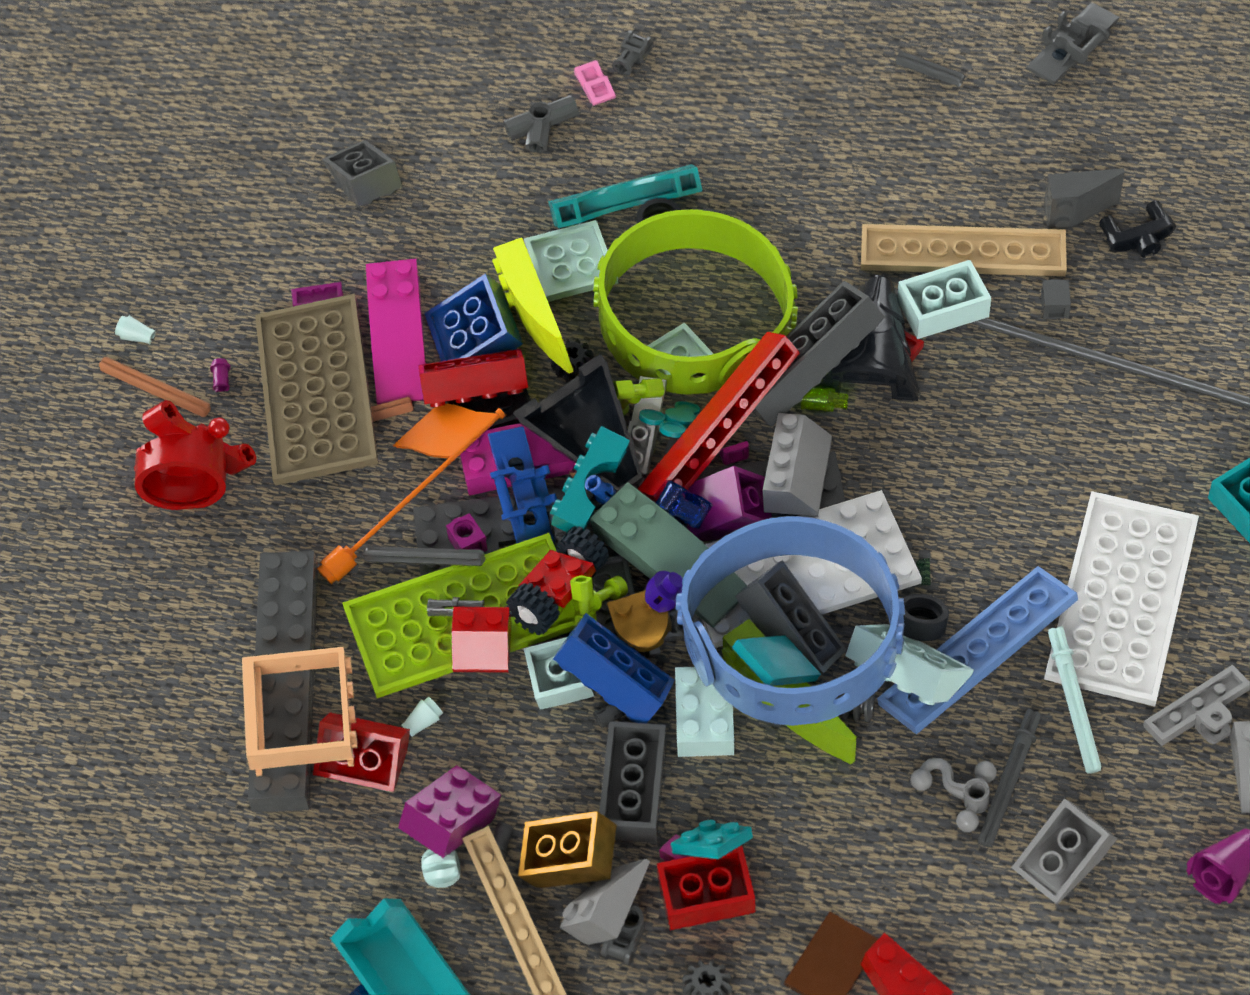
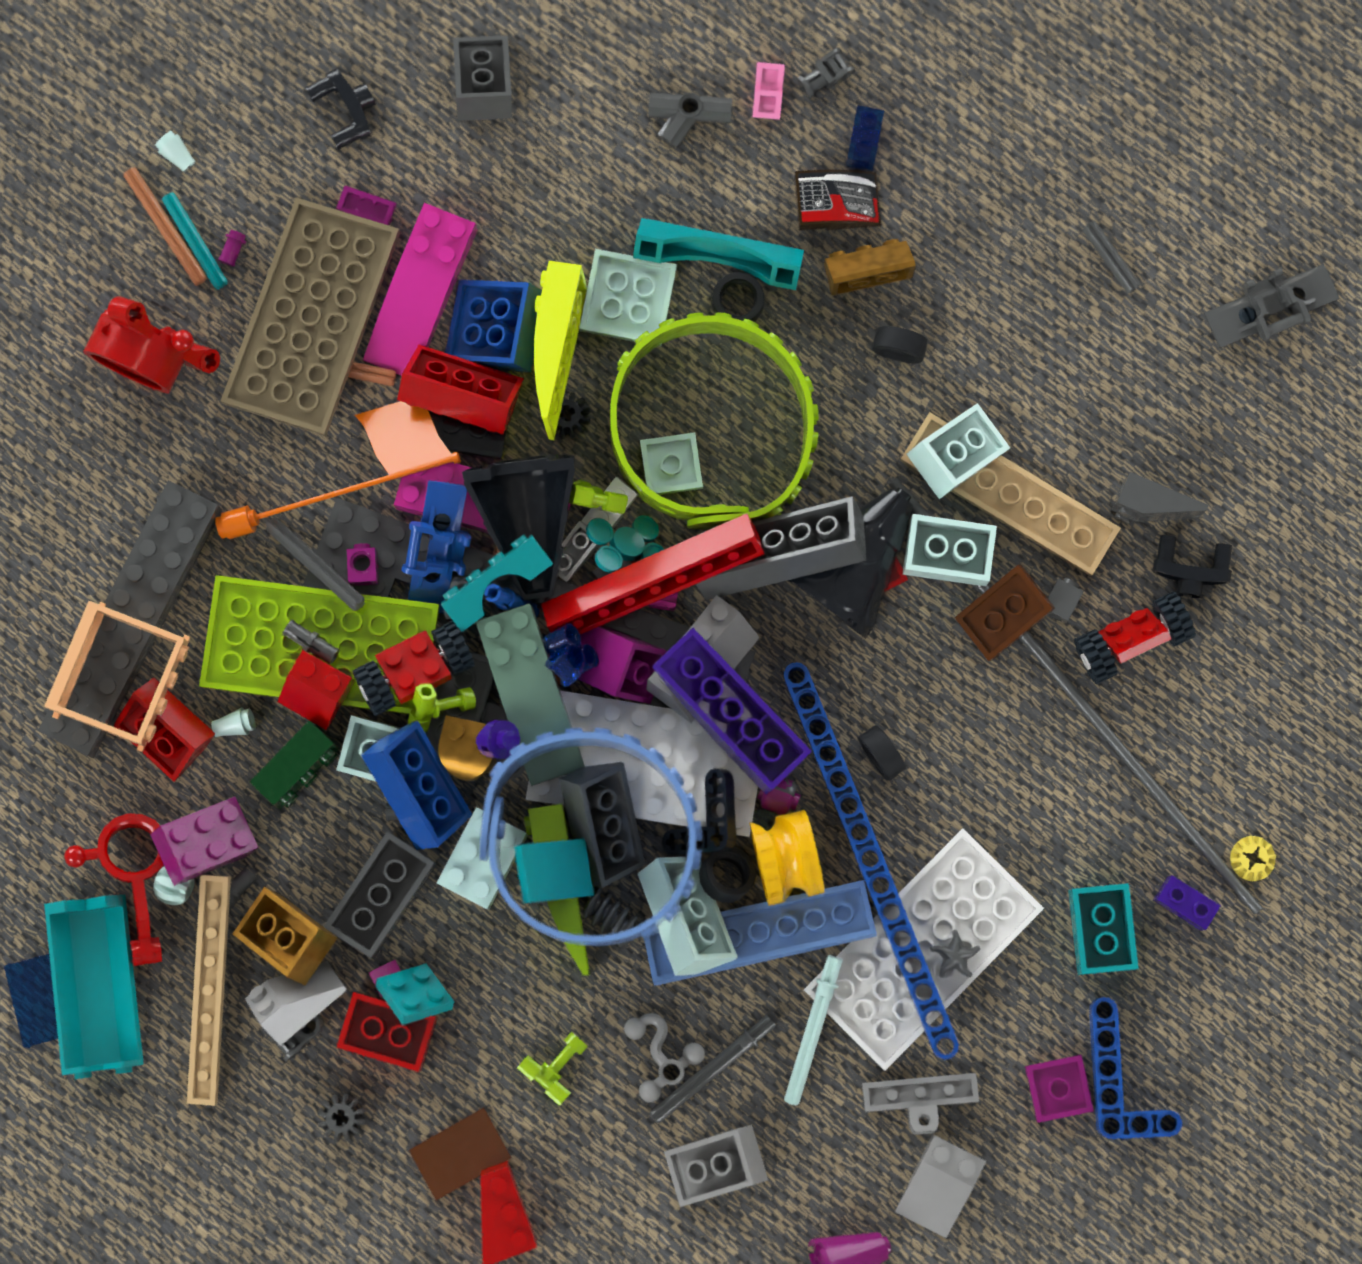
camera: 25 degrees right, 25 degrees up
(185, 384) = (194, 241): none -> teal axle
(267, 230) = (355, 99): none -> black connector
(441, 932) = (145, 949): none -> red piece
(496, 715) = (295, 766): none -> dark green brick
(690, 75) = (865, 138): none -> clear blue brick
(692, 124) = (836, 199): none -> slope
(751, 153) = (869, 267): none -> pearl gold slope
(804, 177) = (899, 344): none -> black tyre
(824, 400) = (780, 593): clear neon green hinge -> none
(849, 480) = (731, 711): none -> dark purple slope
(870, 853) = (547, 1074): none -> lime bar
(896, 566) = (711, 831): none -> black beam
(902, 234) = (958, 450): none -> light aqua slope
(925, 541) = (780, 798): none -> magenta head
(963, 570) = (787, 857): none -> yellow piece
(993, 456) = (882, 752): none -> black tyre
(1017, 324) = (1004, 612): none -> reddish brown plate
(1046, 548) = (870, 844): none -> blue beam
(1109, 313) = (1134, 636): none -> plate
(1153, 581) = (955, 956): none -> dark grey animal

